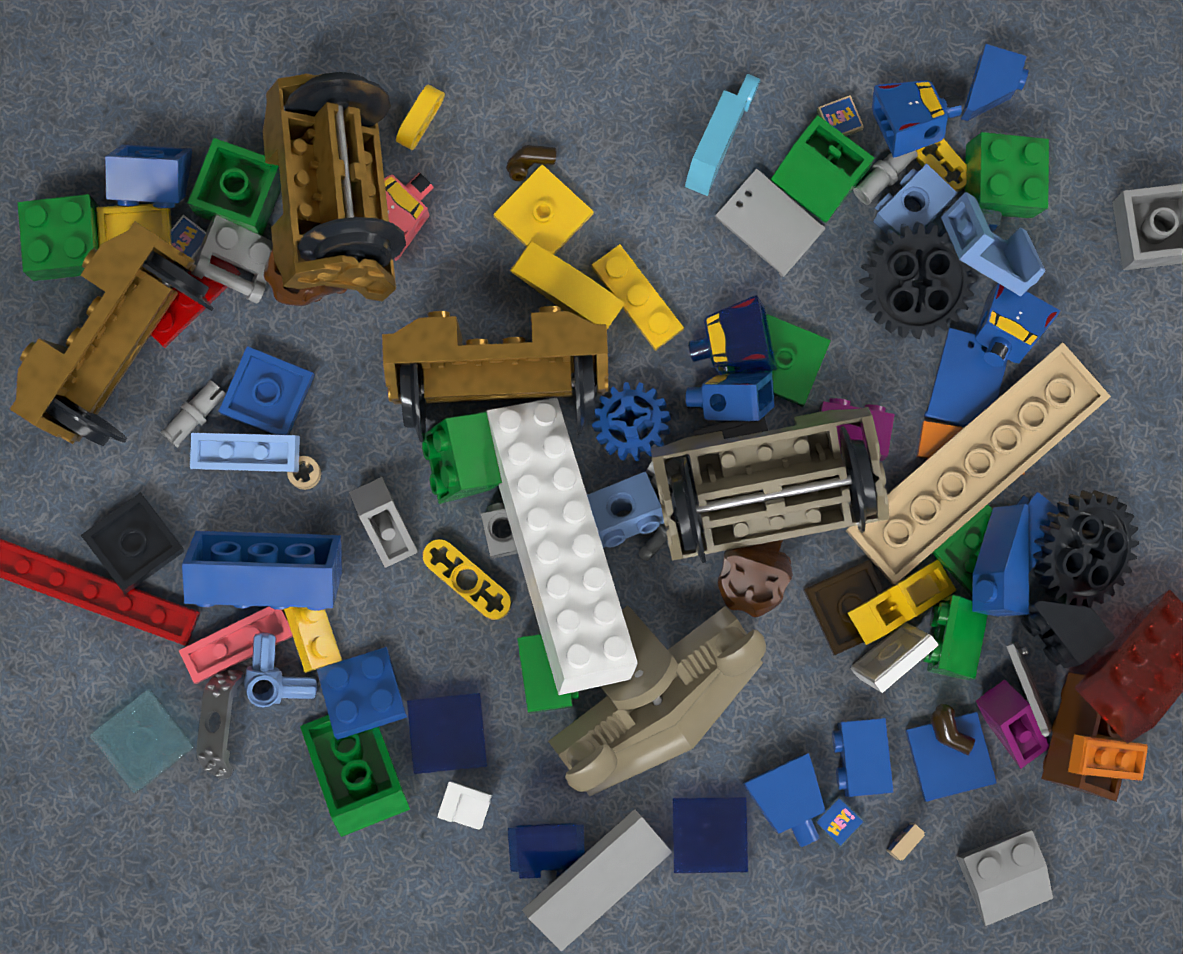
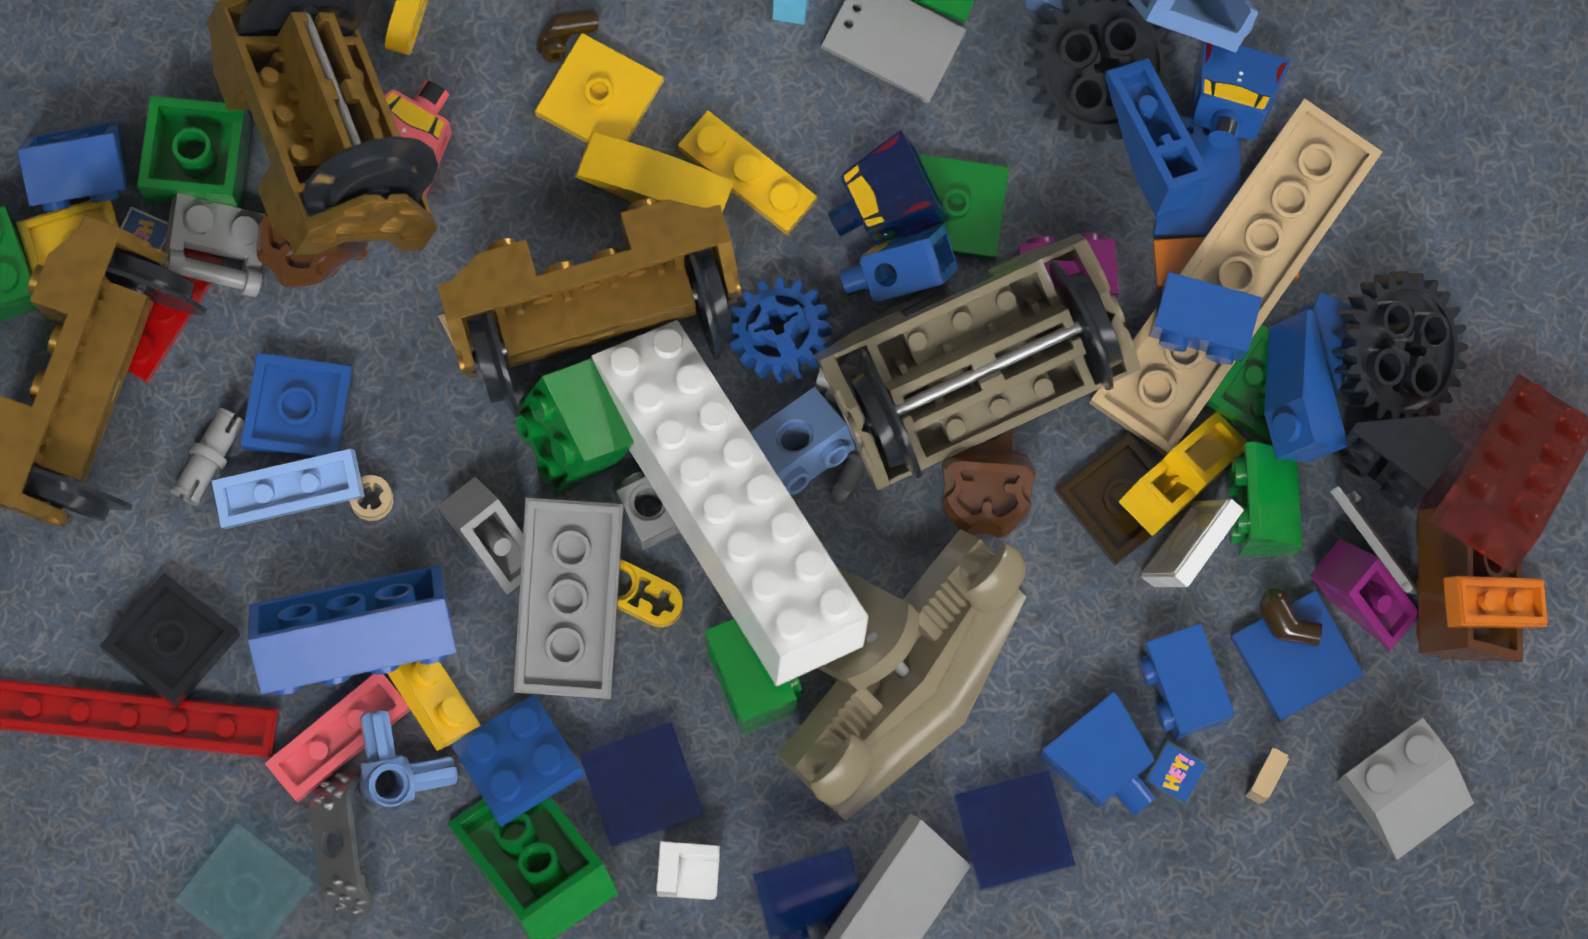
camera: 15 degrees left, 5 degrees down
(427, 583) = (568, 598): none -> light grey tile
(944, 346) = (1156, 139): none -> blue slope
(946, 491) = (1205, 318): none -> blue brick

